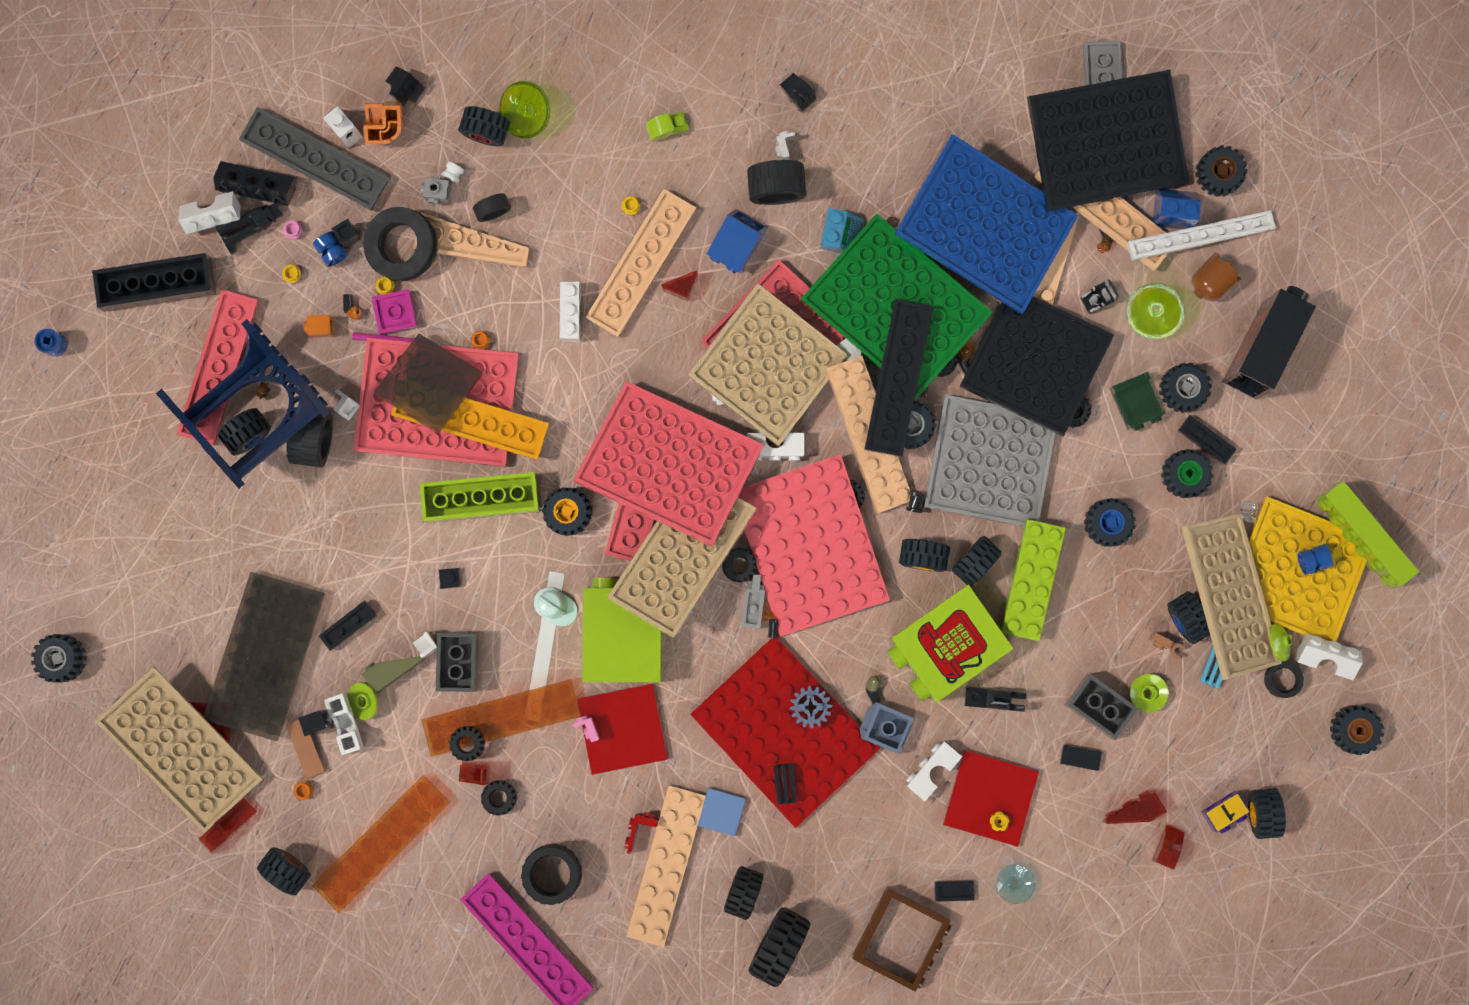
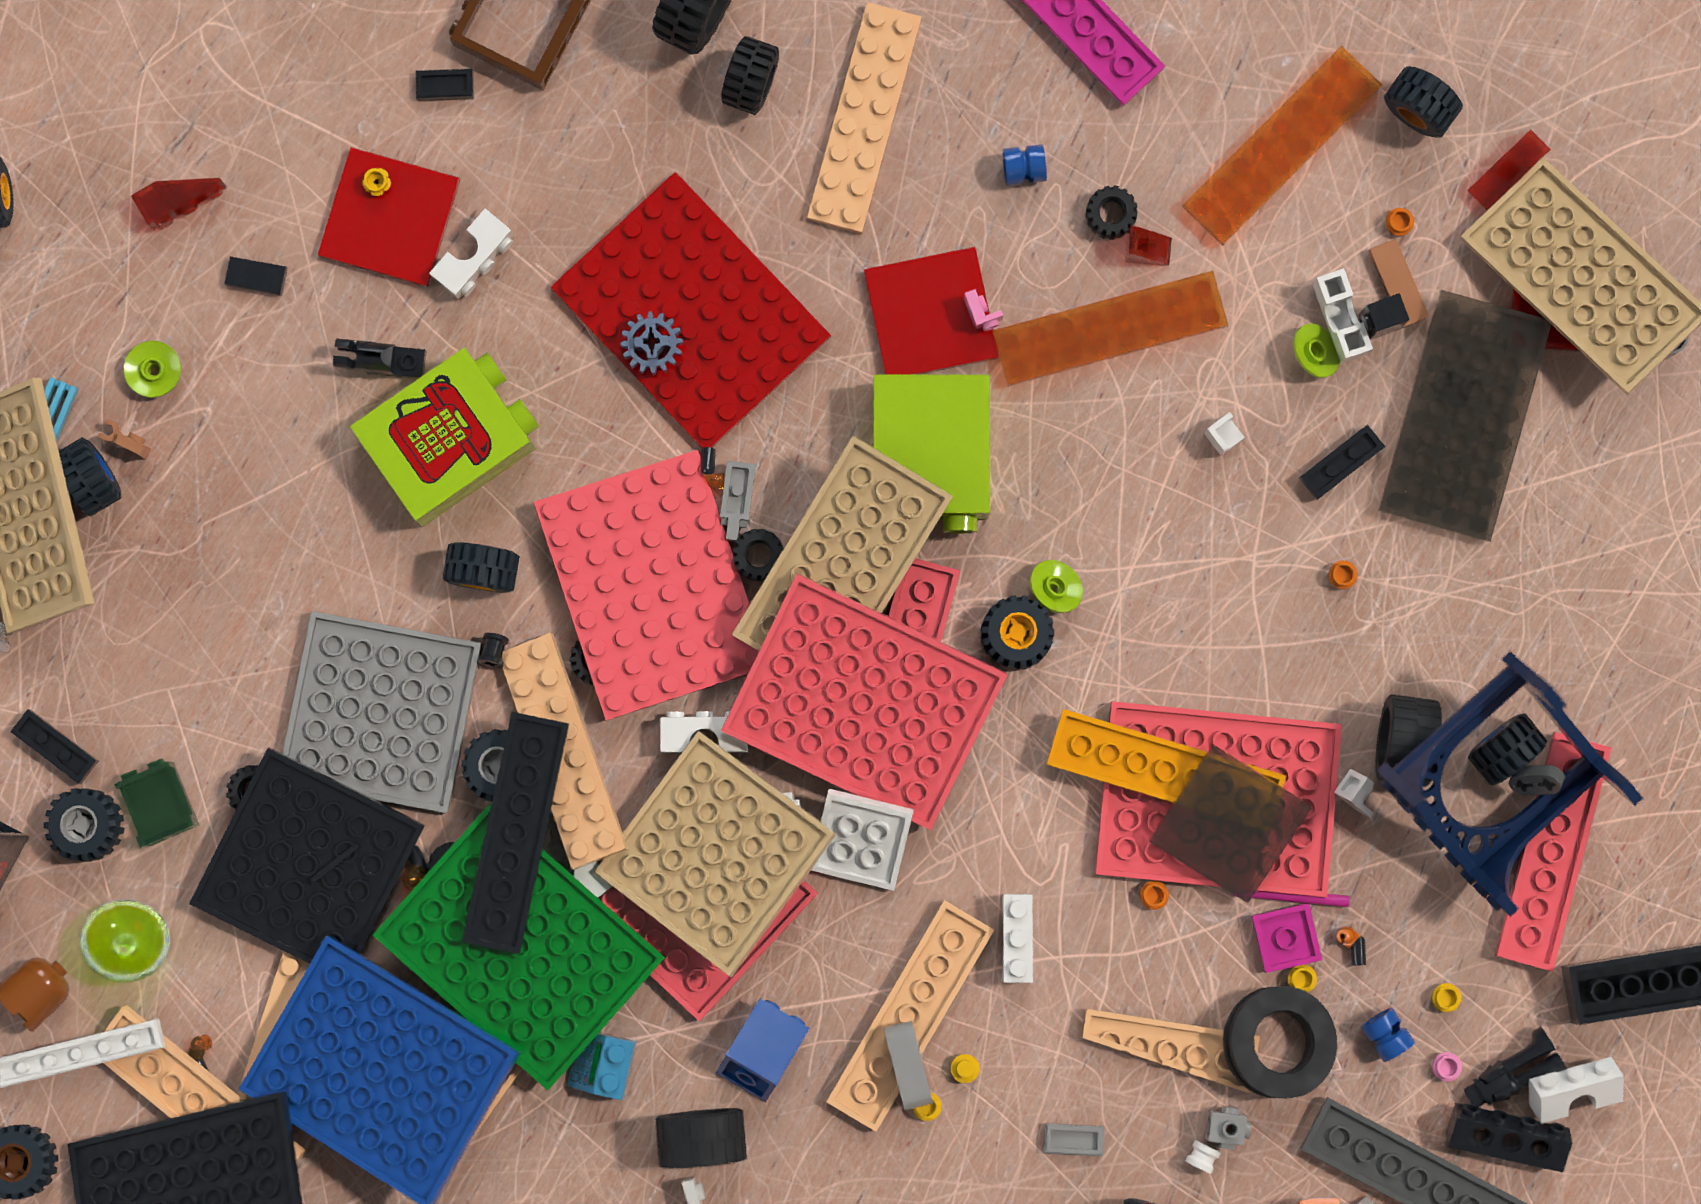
camera: 175 degrees right, 0 degrees up
(224, 409) = (1537, 780): none -> dark grey beam
(263, 390) = (1483, 815): reddish brown plate -> none
(319, 326) = (1400, 914): orange brick -> none
(346, 233) = (1364, 1058): black brick -> none
(349, 550) = (1343, 574): none -> orange plate
(385, 673) = (1280, 394): olive slope -> none
(449, 578) = (1192, 534): black plate -> none
(457, 662) = (1177, 407): dark grey brick -> none
(479, 497) = (1148, 652): lime brick -> none
(479, 743) = (1159, 270): black tyre -> none
(491, 207) = (1140, 1099): black tyre -> none
(528, 874) = (1031, 68): black tyre -> none
(536, 184) = (1074, 1139): none -> light grey tile
(536, 547) = (1060, 578): none -> lime dish
(545, 639) = (1044, 458): white sticker -> none
(555, 607) = (1033, 493): light aqua piece -> none
(557, 830) = (1024, 164): none -> blue wheel
(605, 229) = (965, 1068): none -> yellow plate
(642, 229) = (908, 1065): none -> light grey beam
(646, 819) = (895, 181): red bracket -> none
(667, 375) = (867, 839): none -> white plate
(681, 286) = (847, 978): clear red slope -> none
(721, 812) = (783, 194): medium blue tile -> none
(787, 800) = (687, 209): black tile -> none
(871, 688) = (562, 374): arm -> none
(886, 727) = (541, 315): sand blue slope -> none
(976, 561) = (402, 558): black wheel -> none
(1022, 891) = (352, 80): clear light blue dish -> none
(1032, 579) = (320, 533): lime brick -> none
(1099, 297) = (210, 964): black hand -> none
(1101, 706) = (223, 347): dark grey brick -> none
(1109, 522) = (203, 620): black wheel -> none
(1169, 847) = (129, 146): clear red slope -> none
(1176, 209) = (87, 1102): blue slope -> none
(1187, 473) = (85, 694): black wheel -> none
(1226, 812) = (45, 197): yellow brick -> none

